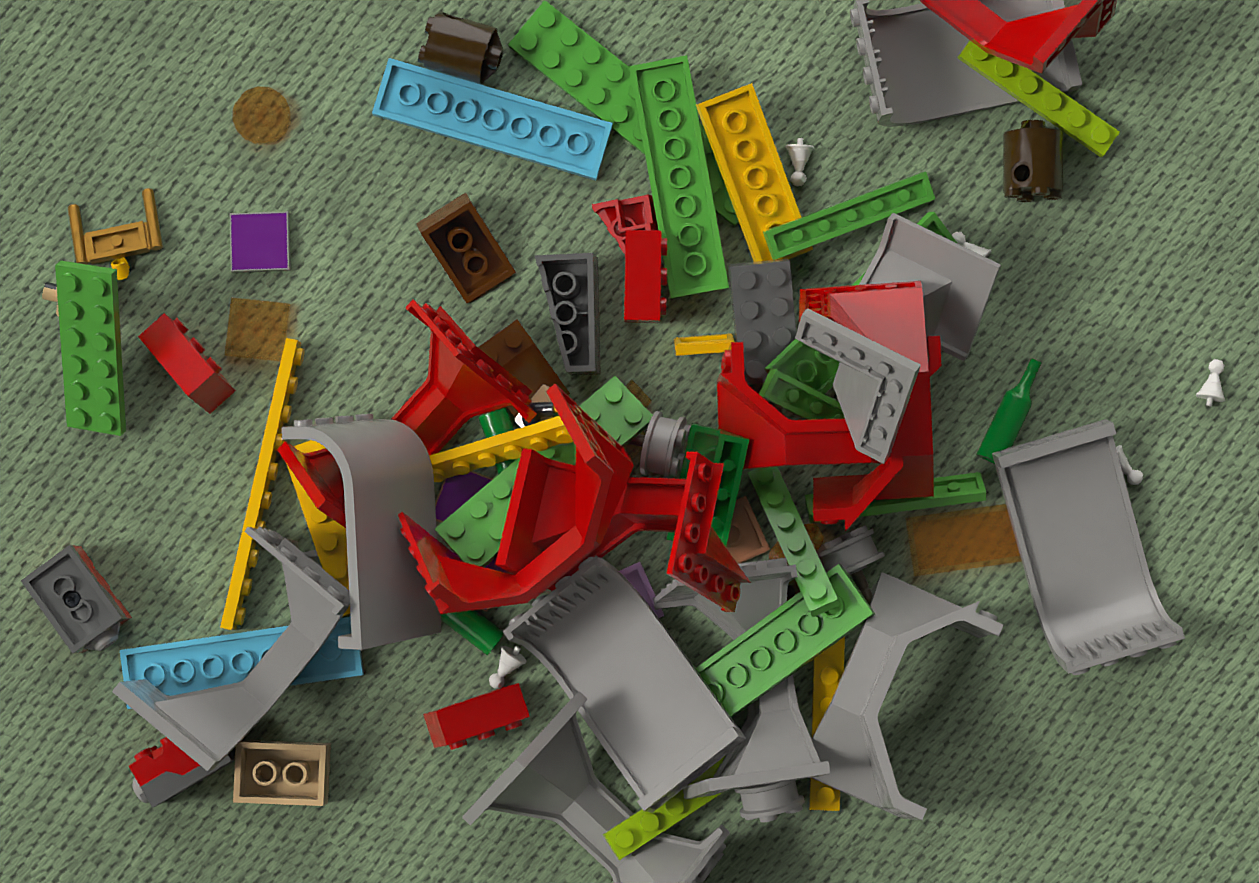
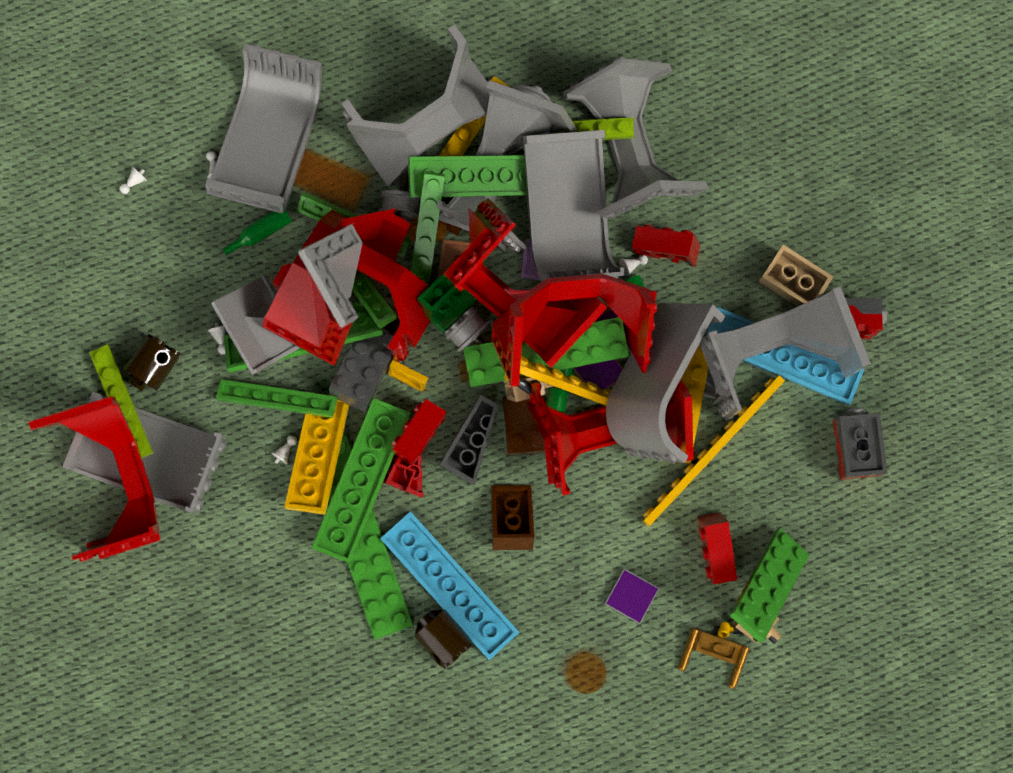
camera: 160 degrees left, 5 degrees down
(257, 329) = (663, 544): clear orange tile -> none

